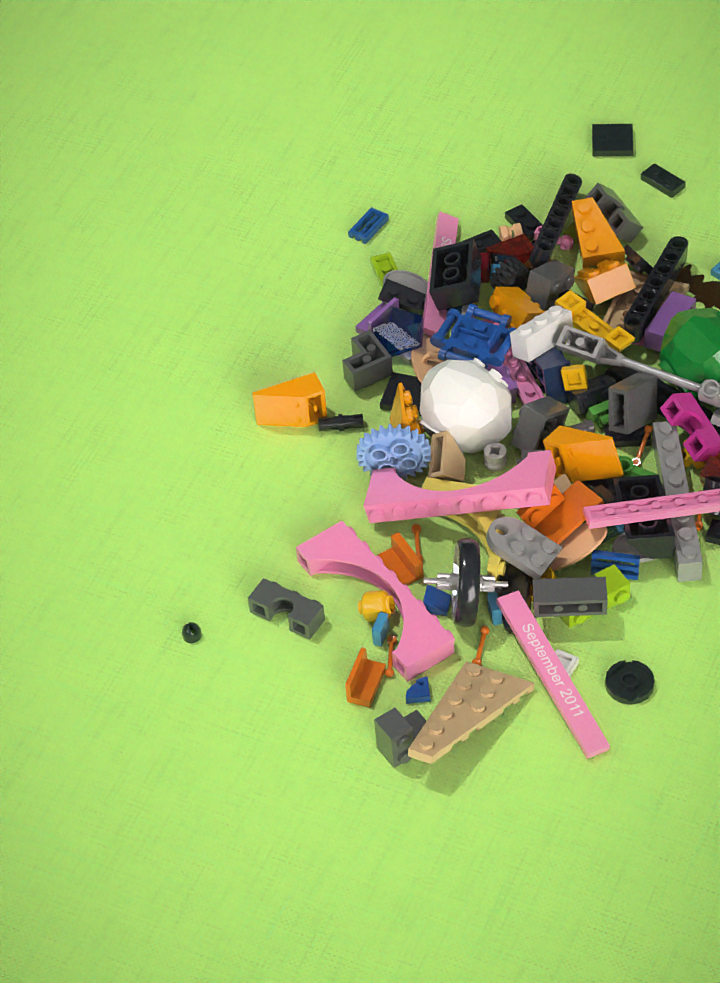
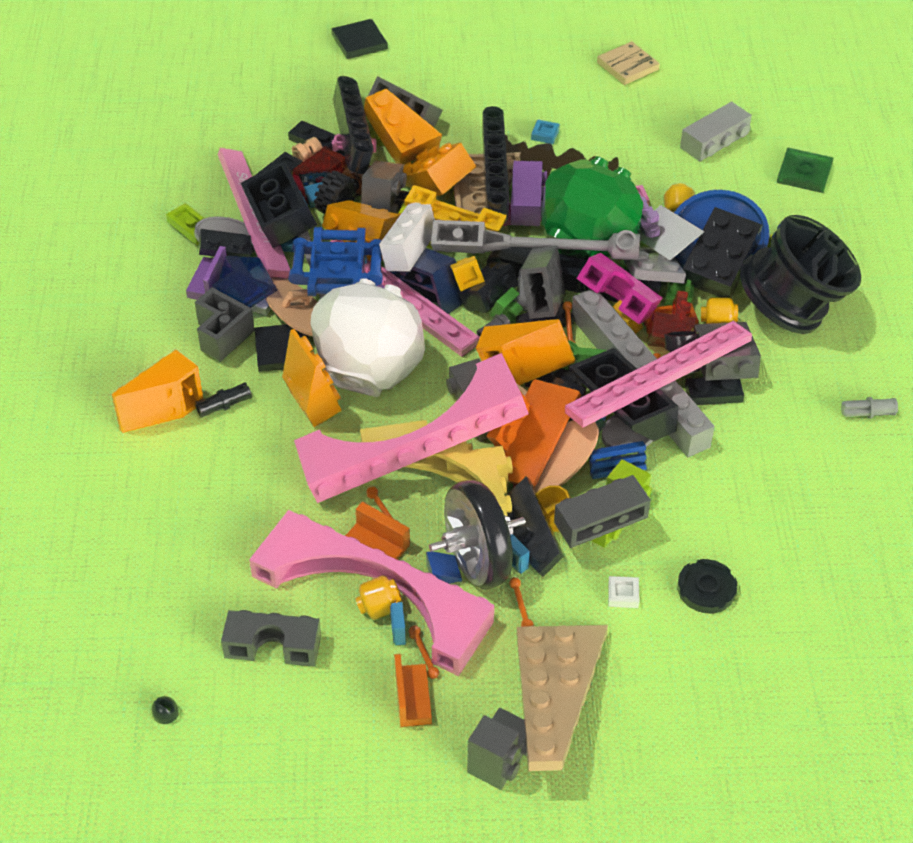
camera: 30 degrees left, 0 degrees up
(372, 226) = (141, 195): blue tile -> none
(392, 449) = (312, 407): light blue gear -> none
(418, 692) = (481, 683): blue tile -> none
(446, 458) = (372, 401): tan slope -> none
(495, 456) = (419, 384): white wheel -> none
(522, 546) = (519, 471): light grey plate -> none
(537, 422) = (451, 334): dark grey brick -> none
(553, 674) = (627, 608): bright pink tile -> none
(637, 261) = (468, 143): black plate -> none
(663, 180) = (432, 63): black plate -> none

